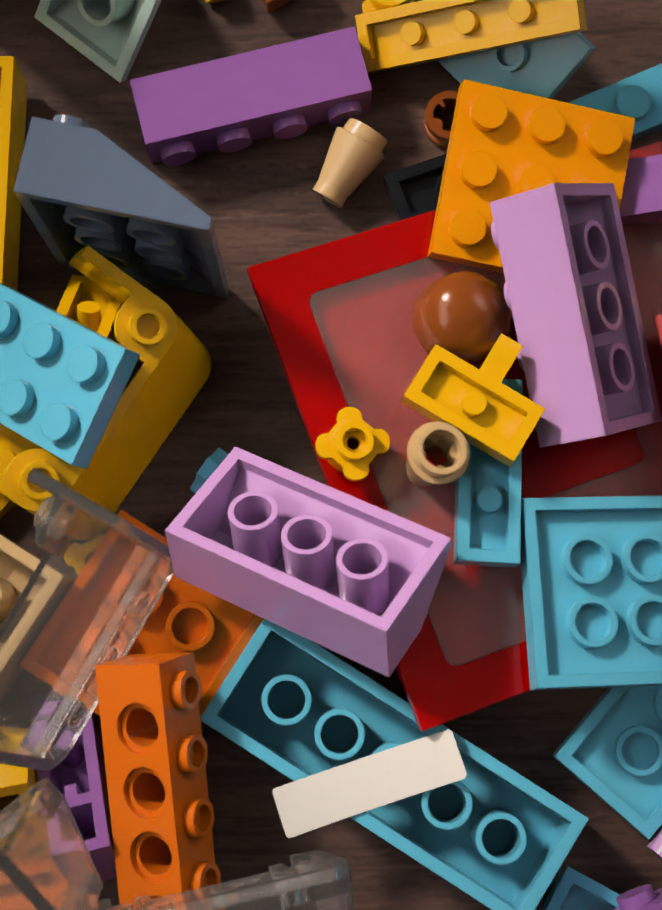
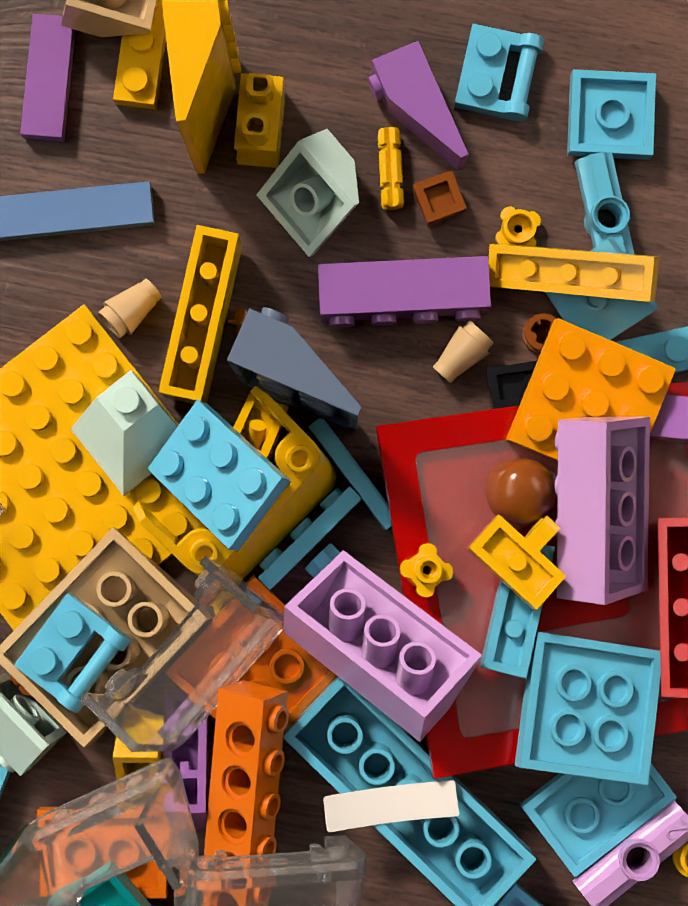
camera: 10 degrees right, 5 degrees up
(187, 444) = (307, 536): none -> medium azure plate
(231, 348) = (351, 471): none -> medium azure tile
(444, 447) = (492, 591): tan cone -> none

